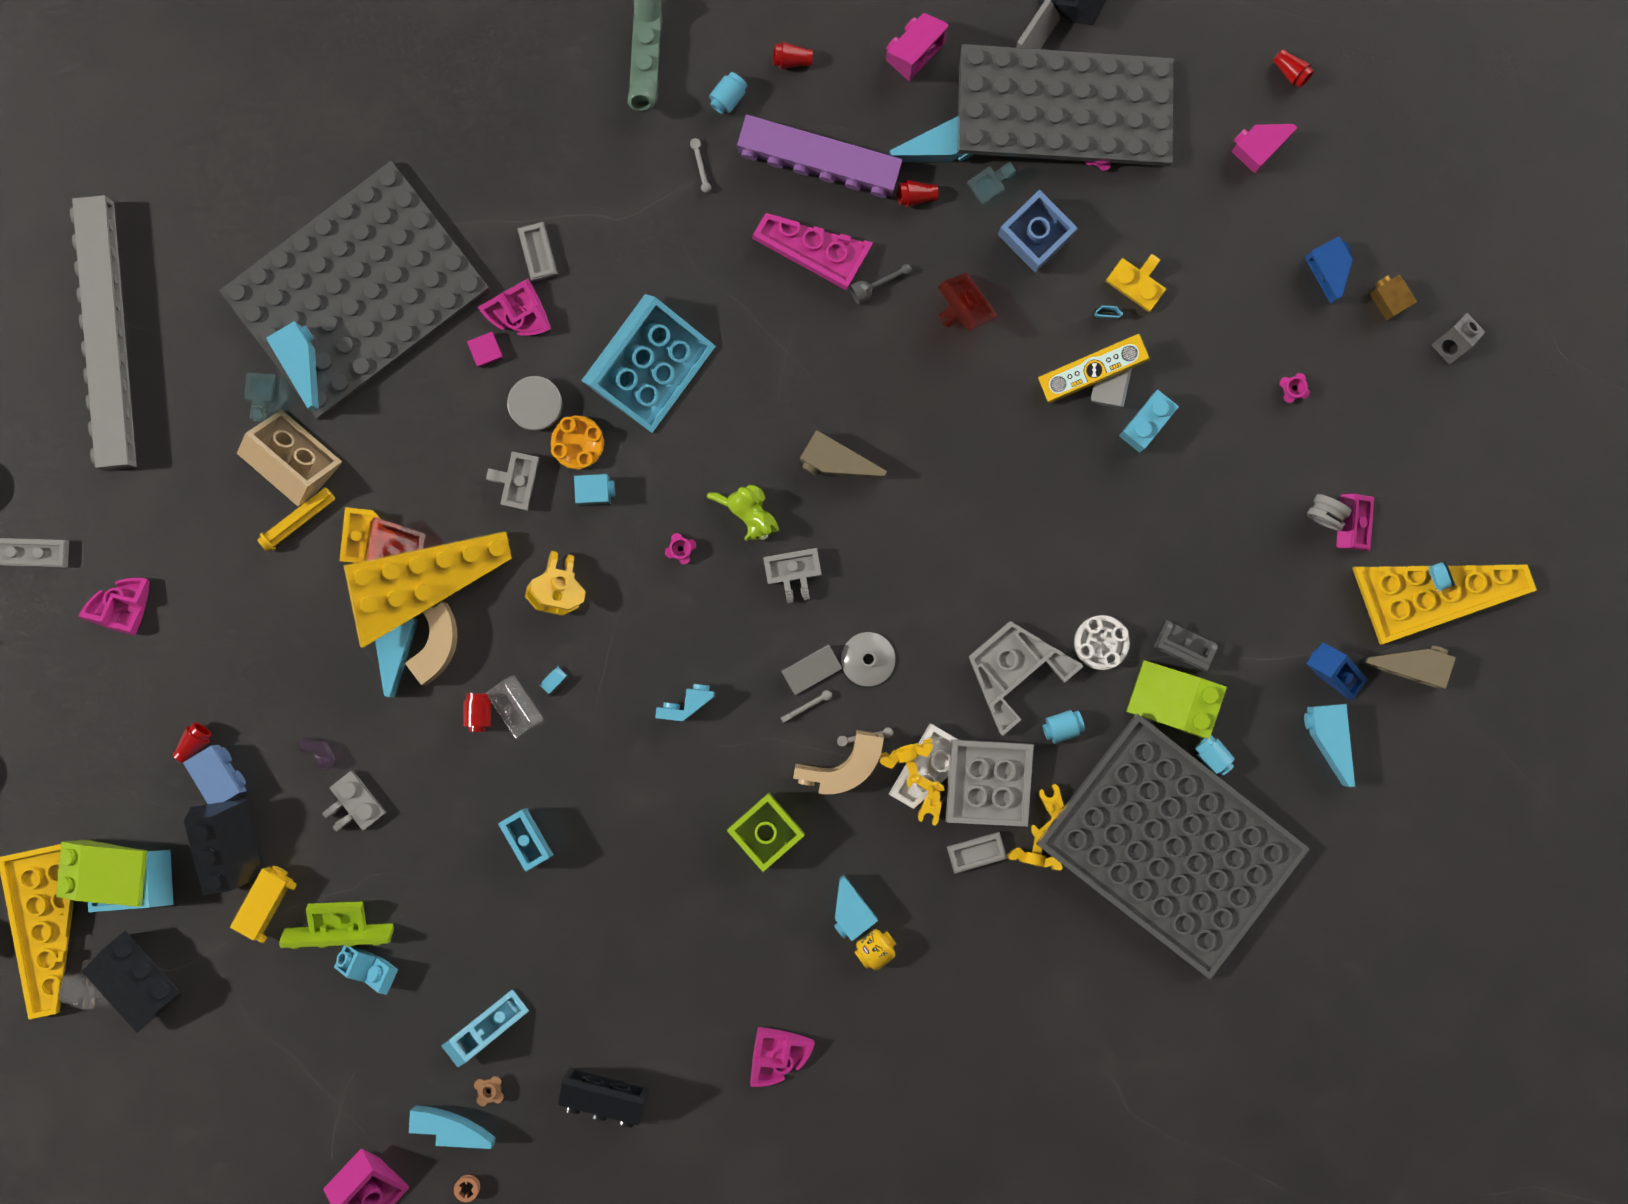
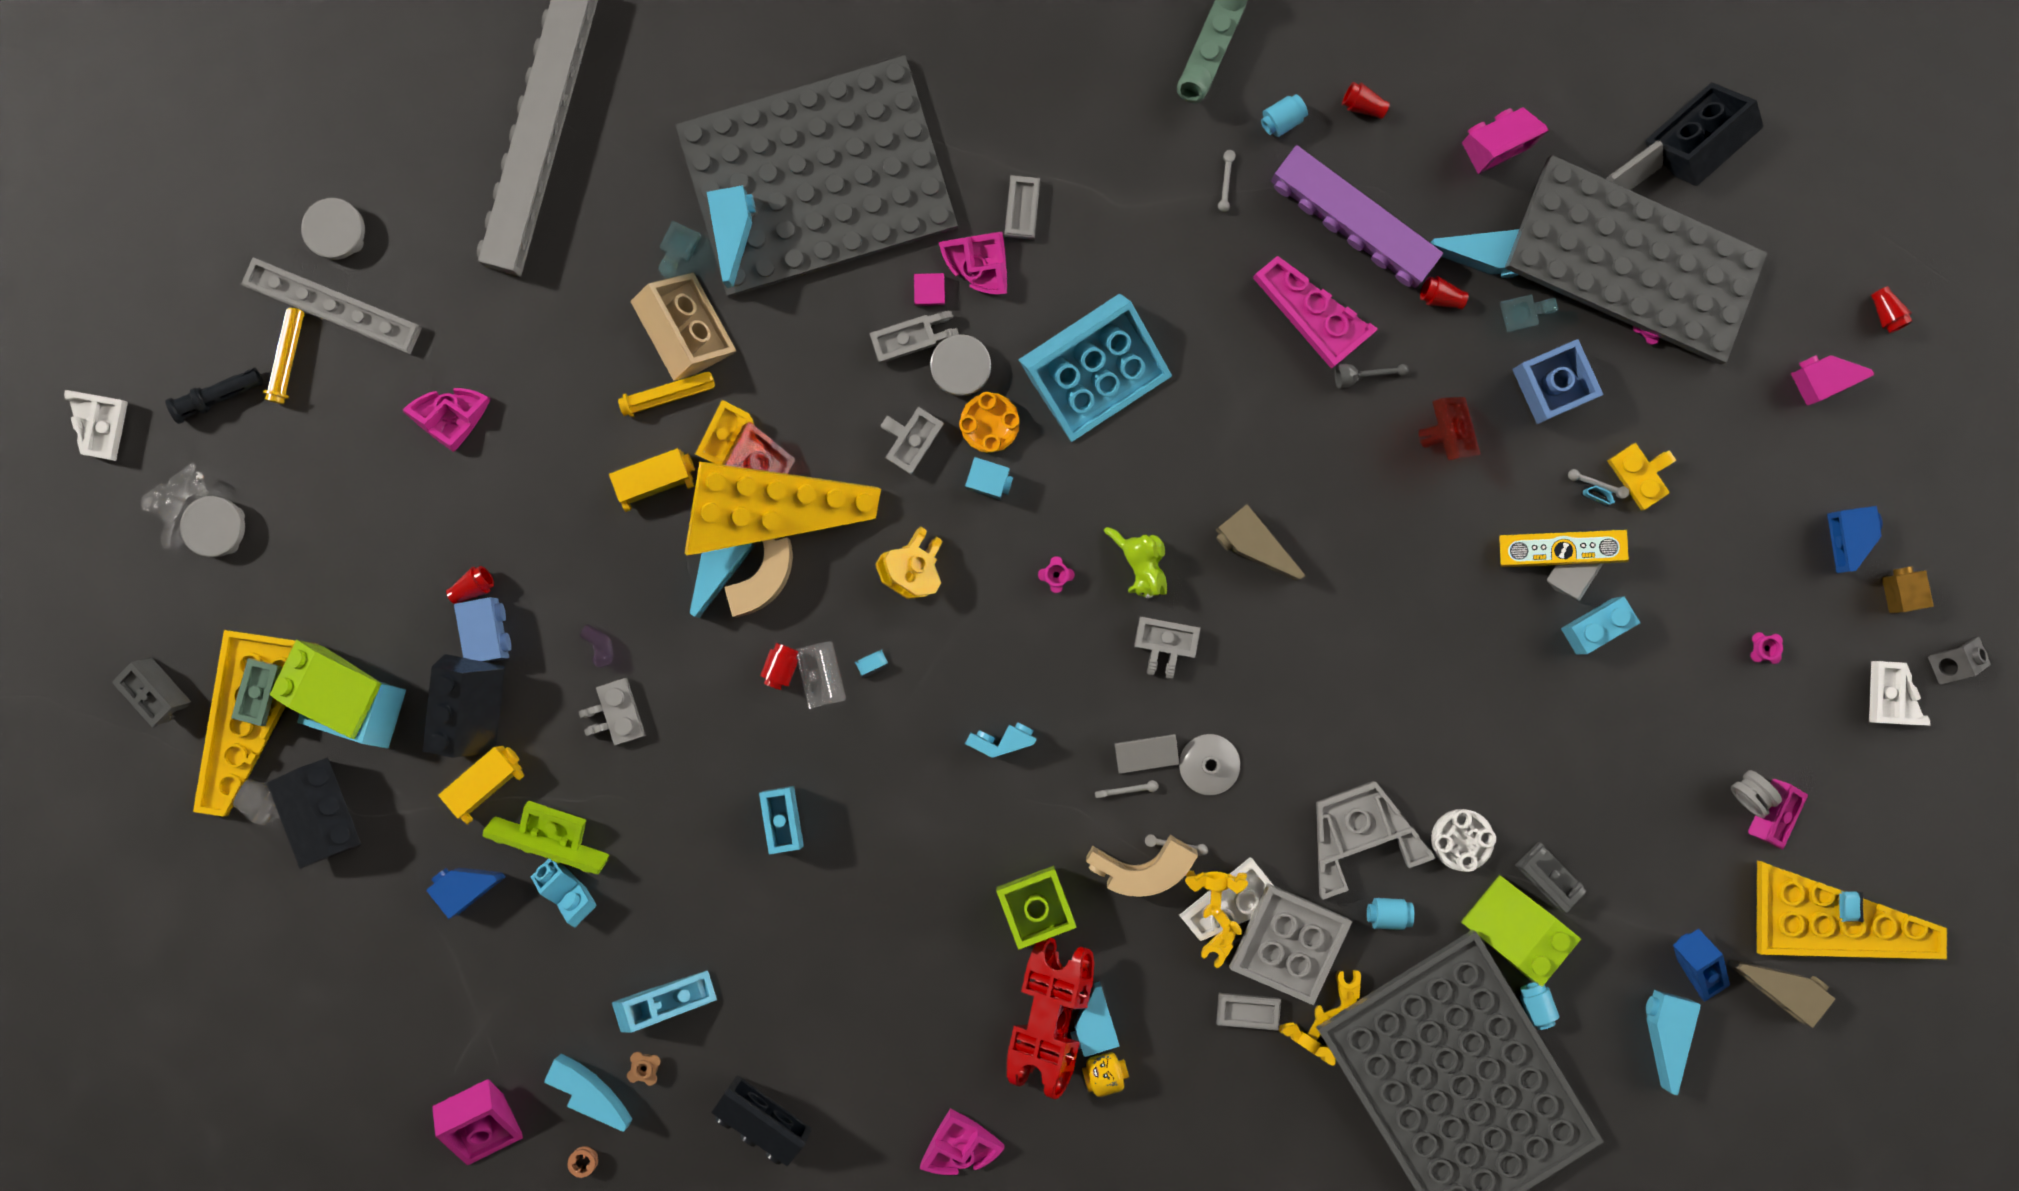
camera: 20 degrees right, 0 degrees up
(43, 903) = (254, 696): none -> sand green plate
(279, 998) = (461, 888): none -> blue slope
(310, 593) = (652, 477): none -> yellow brick
(483, 395) = (910, 336): none -> light grey hinge
(811, 918) = (1045, 1036): none -> red piece
(1126, 303) = (1621, 492): none -> light grey hinge
(1414, 388) = (1894, 695): none -> white wing

